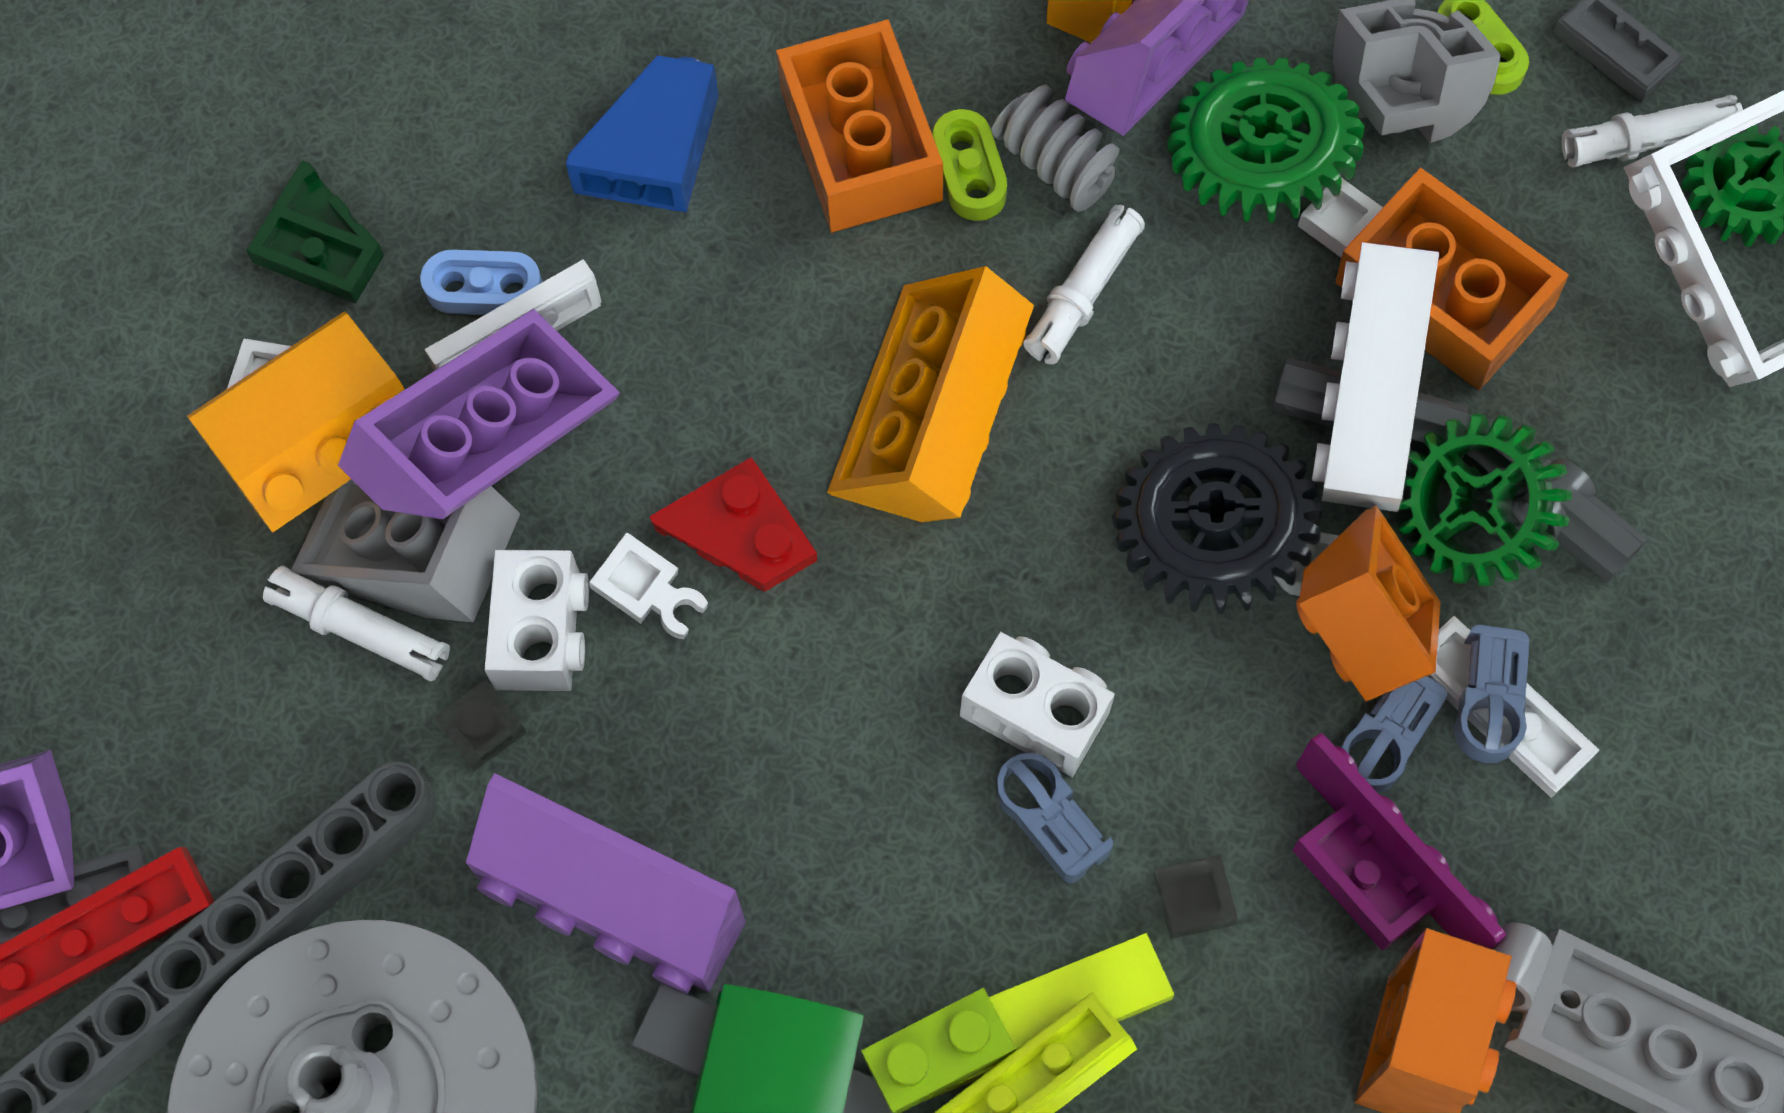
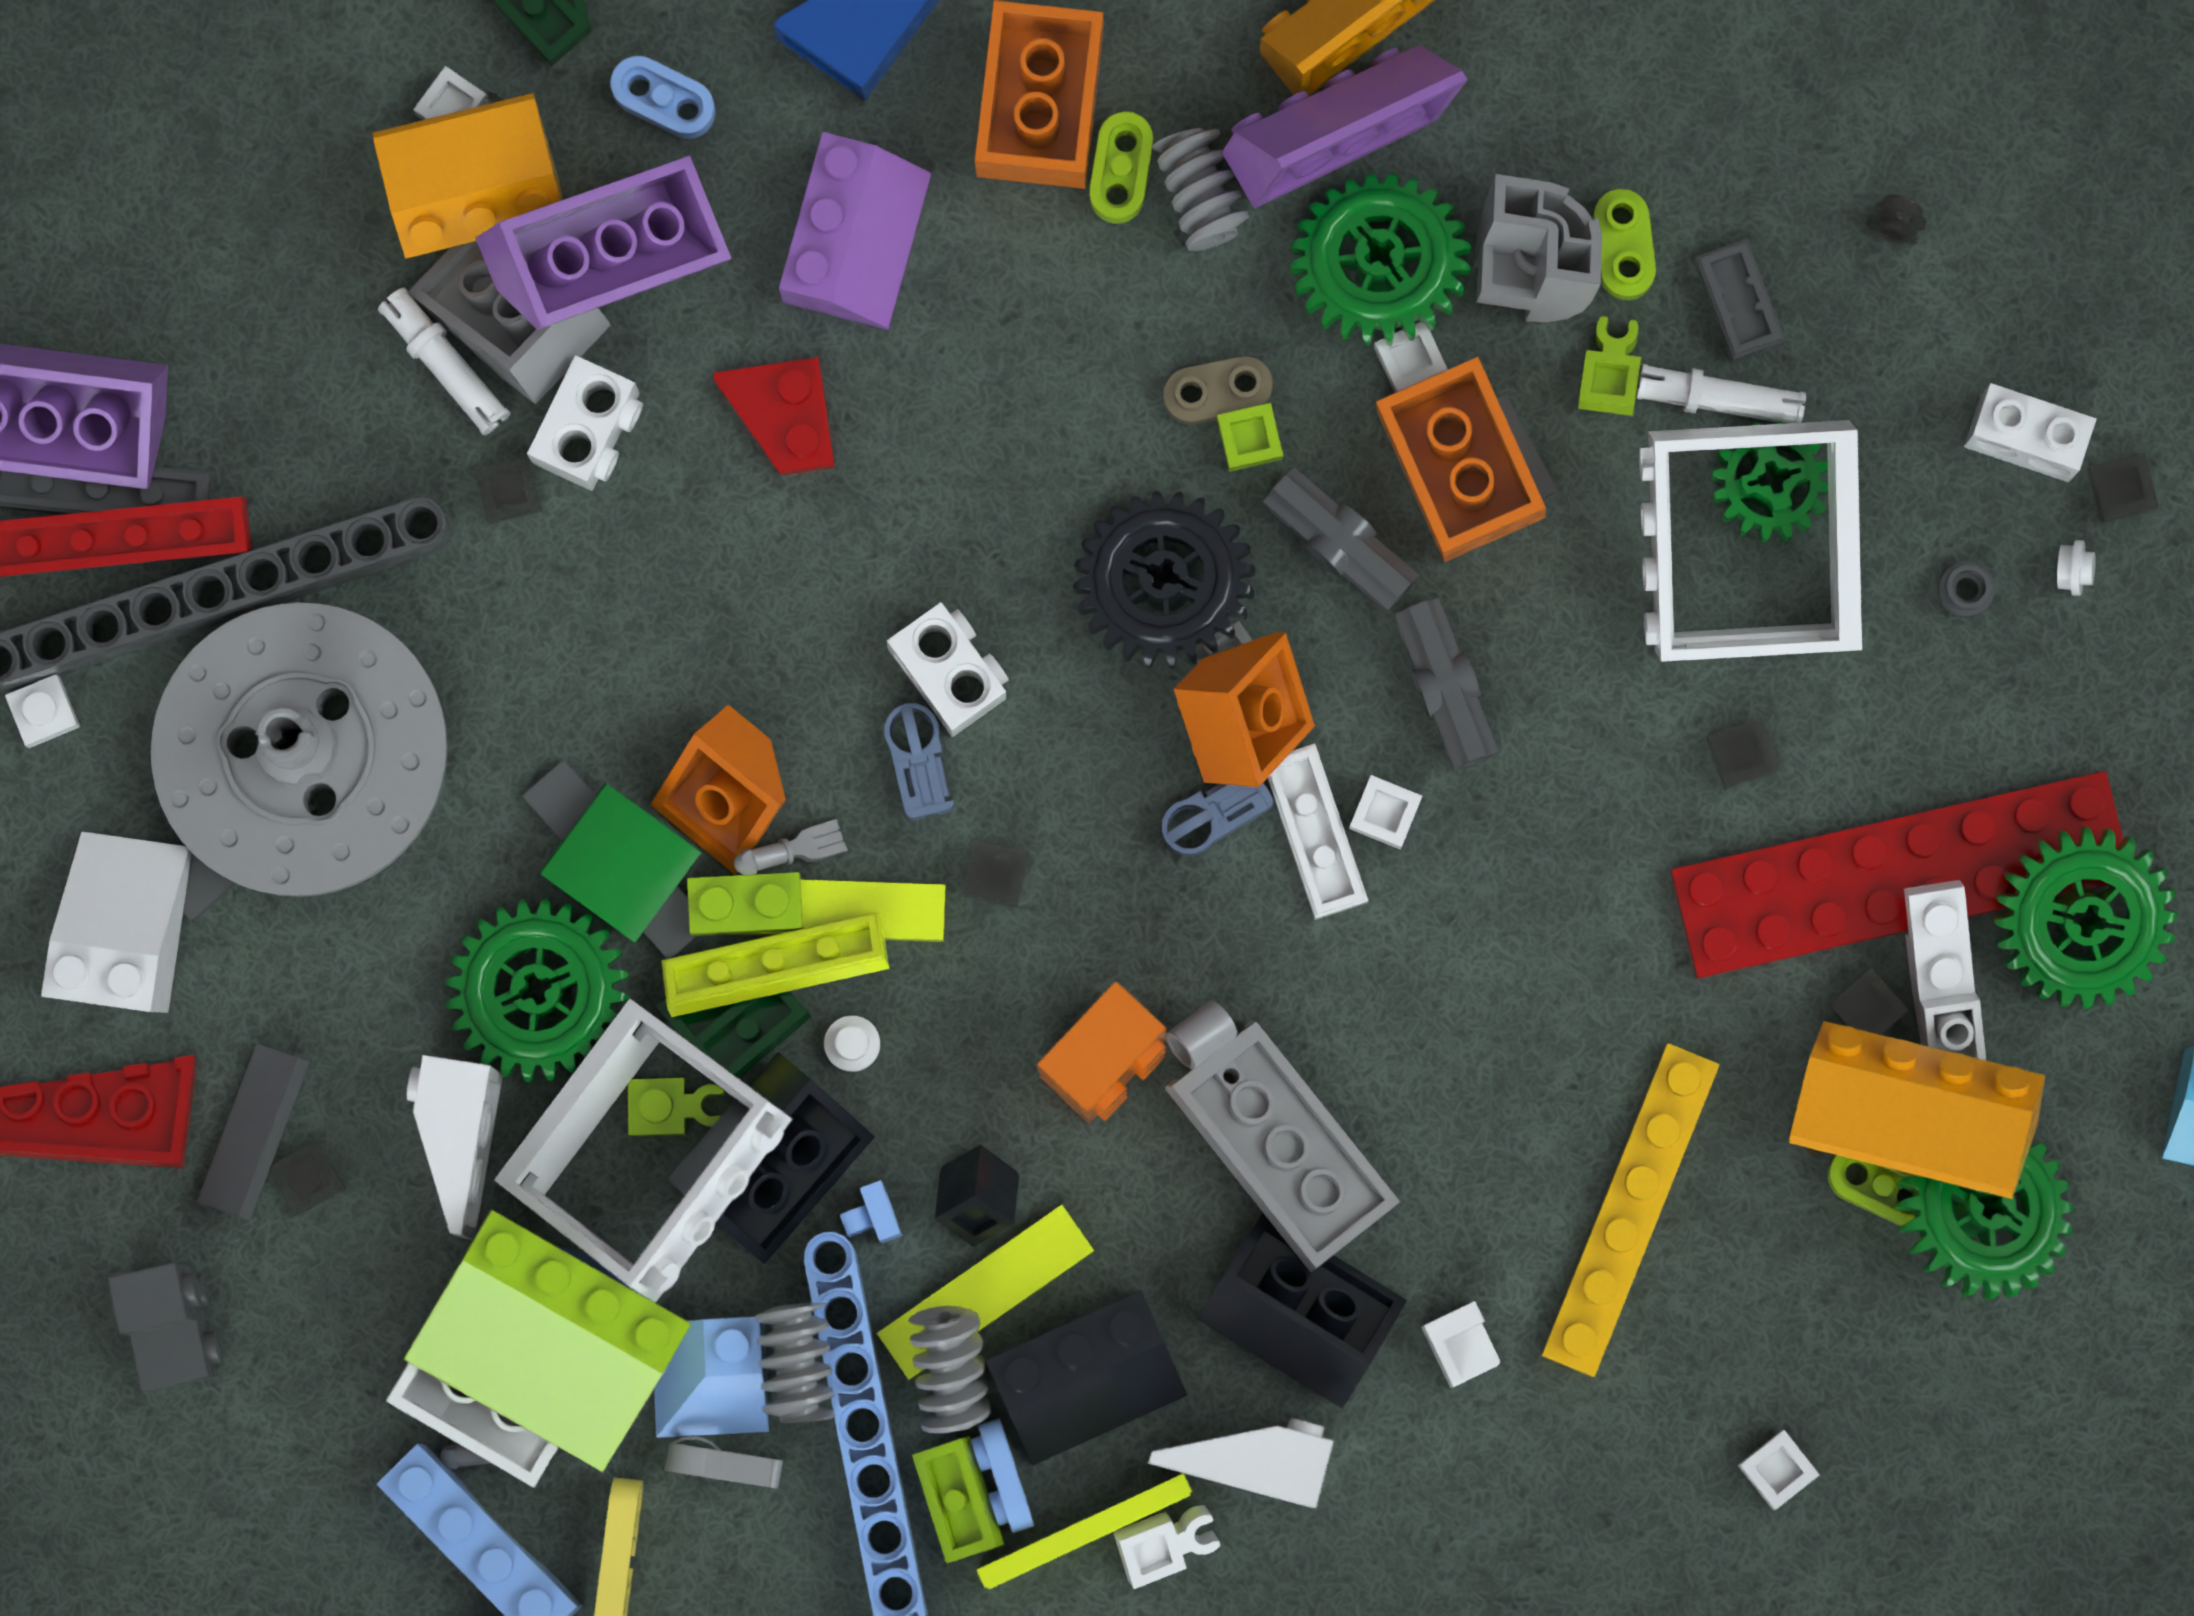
camera: 25 degrees right, 15 degrees up
(557, 300) = (703, 147): white tile -> none
(604, 886) = (548, 669): medium lavender slope -> none
(640, 581) = (681, 427): white plate -> none
(733, 325) = (854, 232): none -> medium lavender slope
(857, 936) = (723, 787): none -> orange slope
(933, 396) = (989, 369): light orange slope -> none
(975, 957) = (809, 845): none -> light grey piece
(1072, 302) = (1164, 323): white pin -> none
(1171, 323) = (1217, 389): none -> dark tan plate
(1225, 352) = (1249, 437): none -> lime plate
(1378, 378) = (1340, 527): white brick -> none
(1379, 863) = (1143, 914): magenta bracket -> none
(1498, 683) = (1311, 813): sand blue piece -> none
(1500, 519) = (1355, 640): green gear -> none
(1536, 155) = (1611, 375): none -> lime plate
(1566, 652) = (1385, 812): none -> white plate

